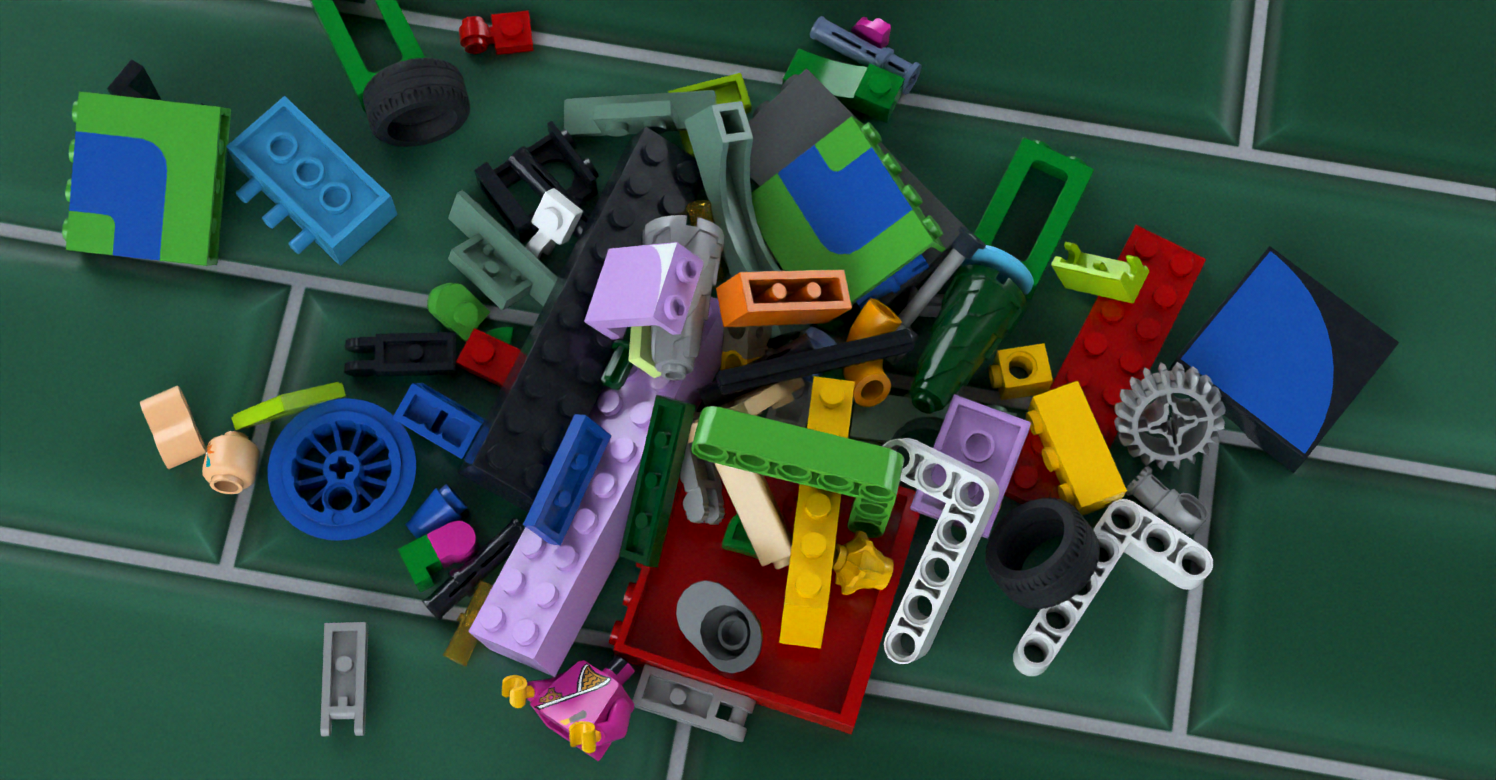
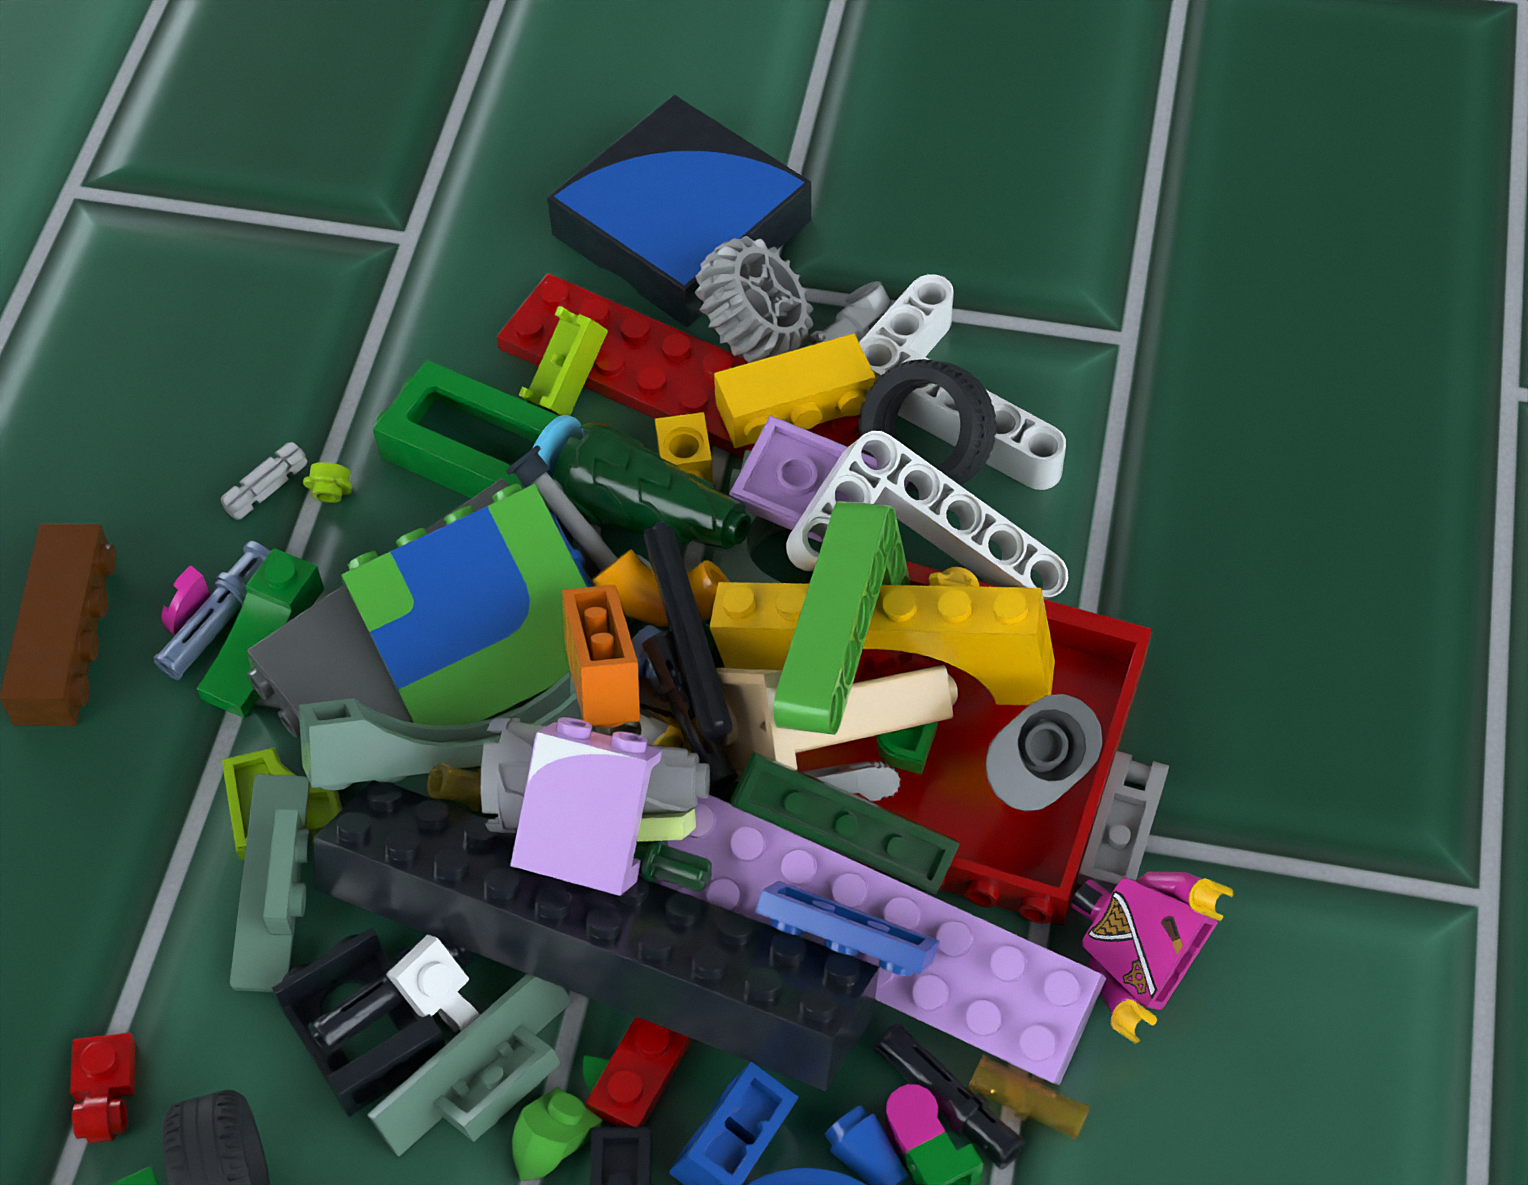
camera: 85 degrees left, 15 degrees down
(985, 115) = (328, 482): none -> lime plate
(987, 71) = (263, 480): none -> light grey axle

